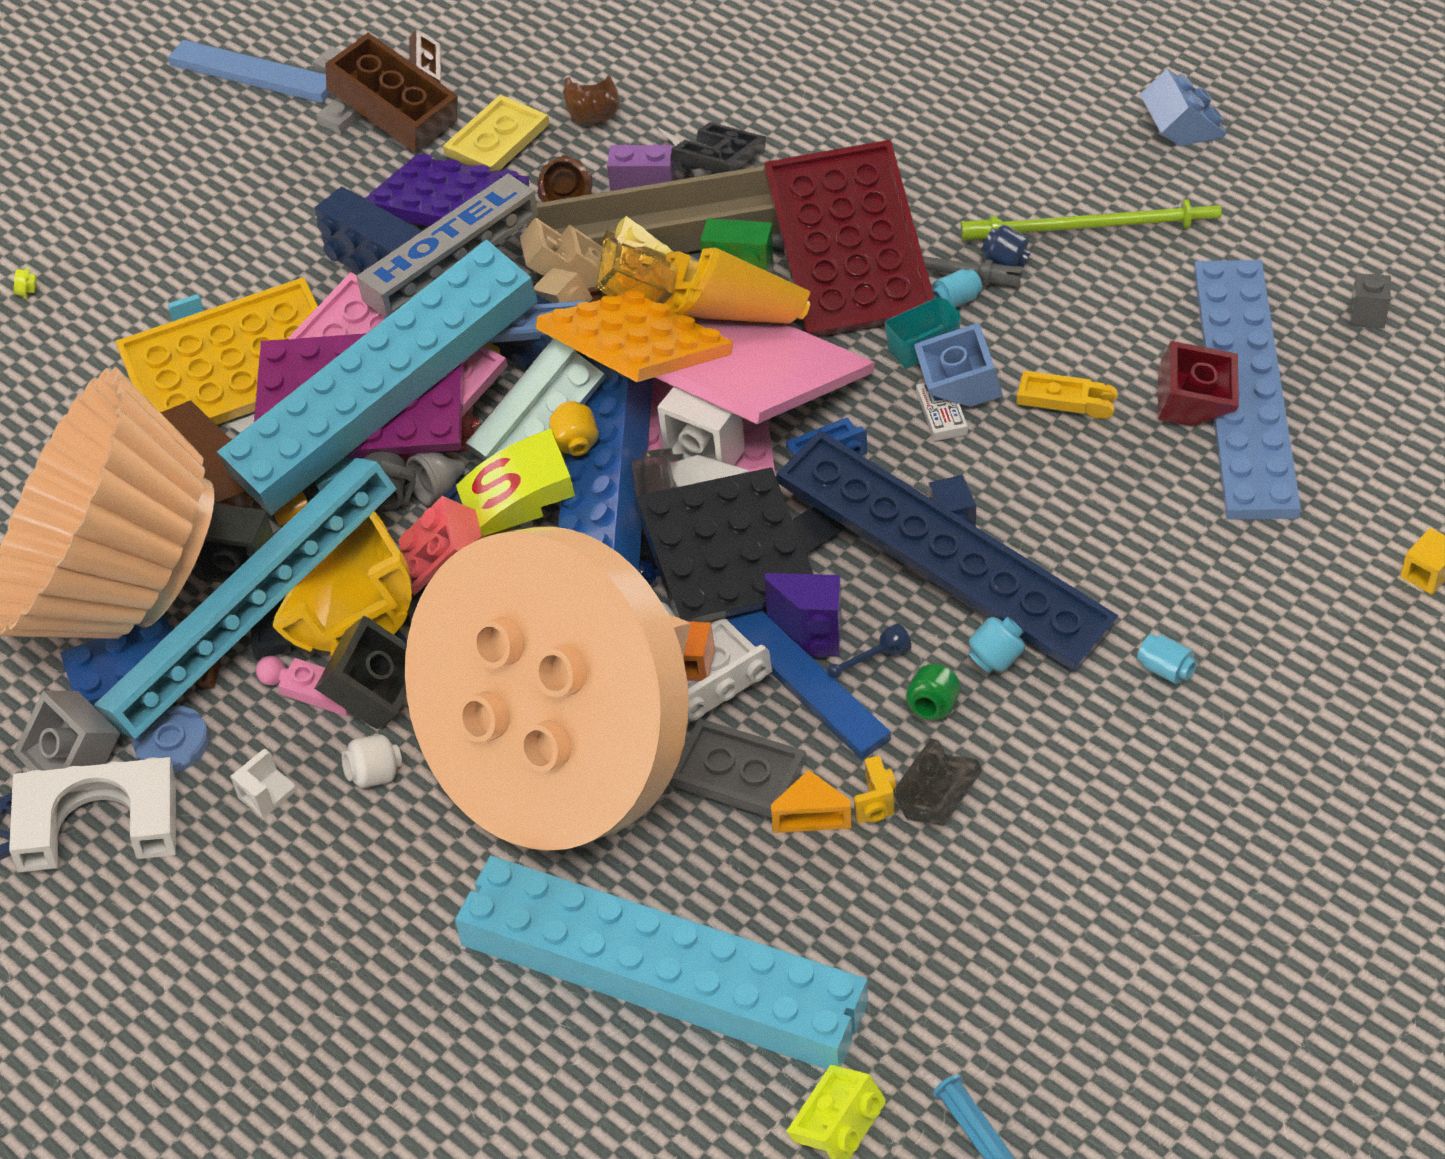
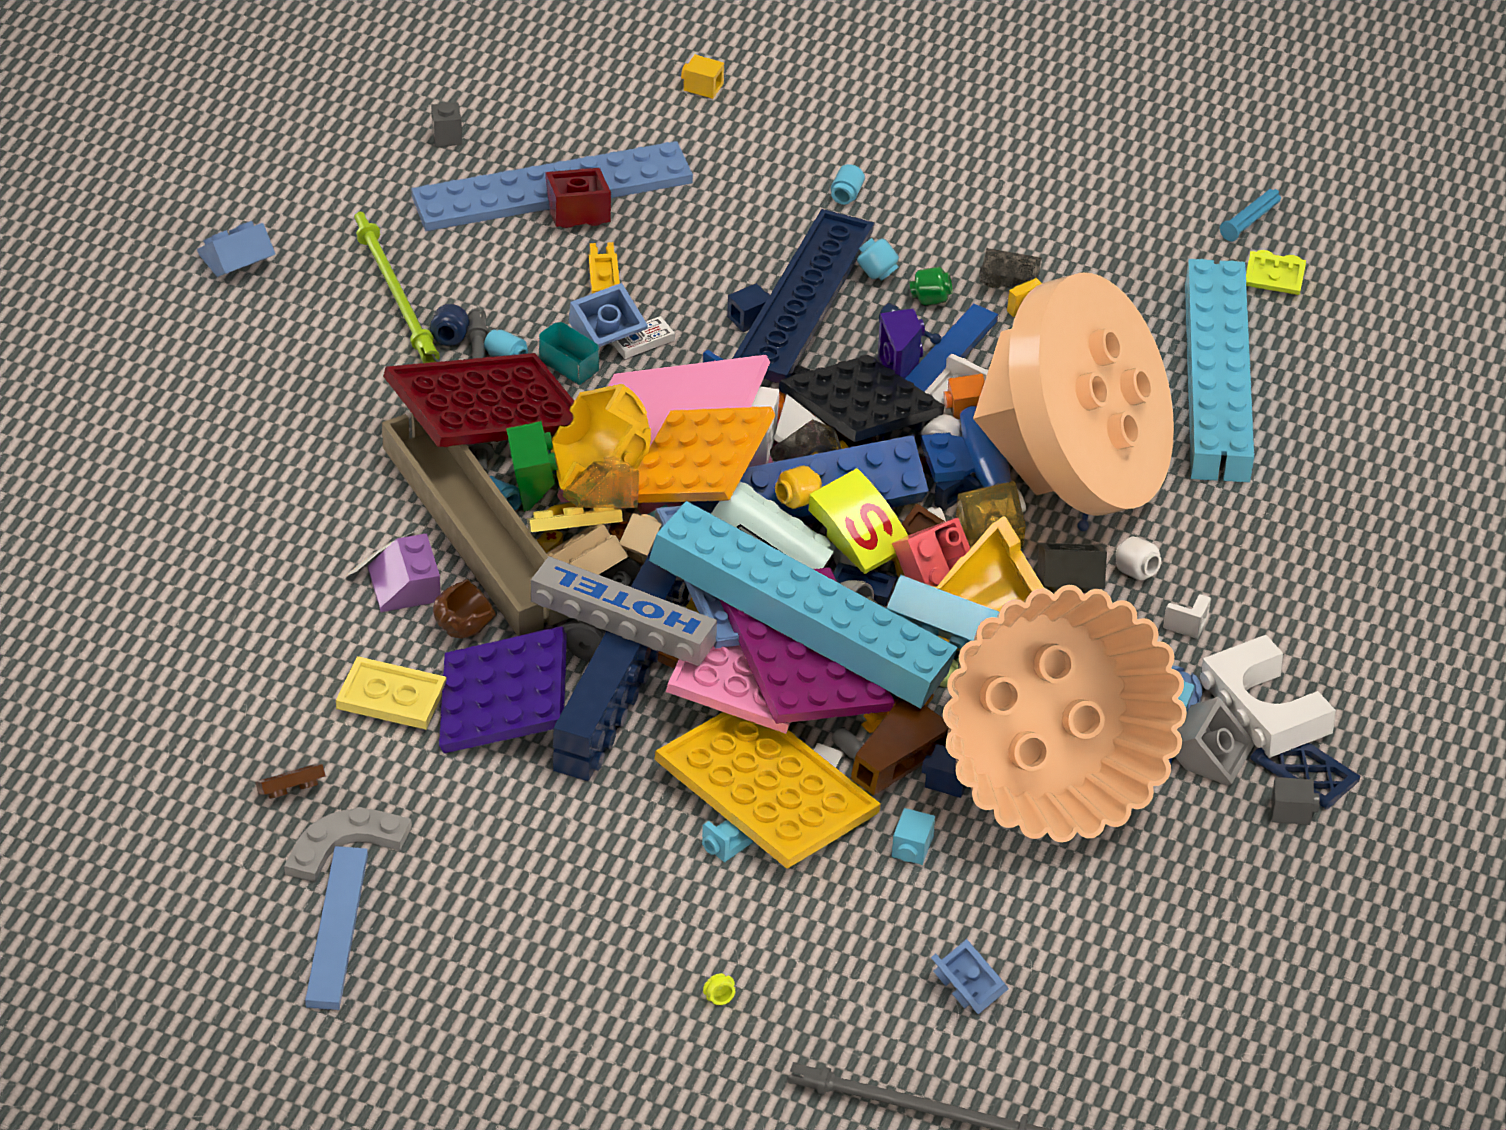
camera: 115 degrees left, 5 degrees down
(391, 92) = (373, 765): reddish brown brick -> none
(591, 102) = (328, 625): reddish brown hair -> none
(723, 150) = (401, 507): black plate -> none

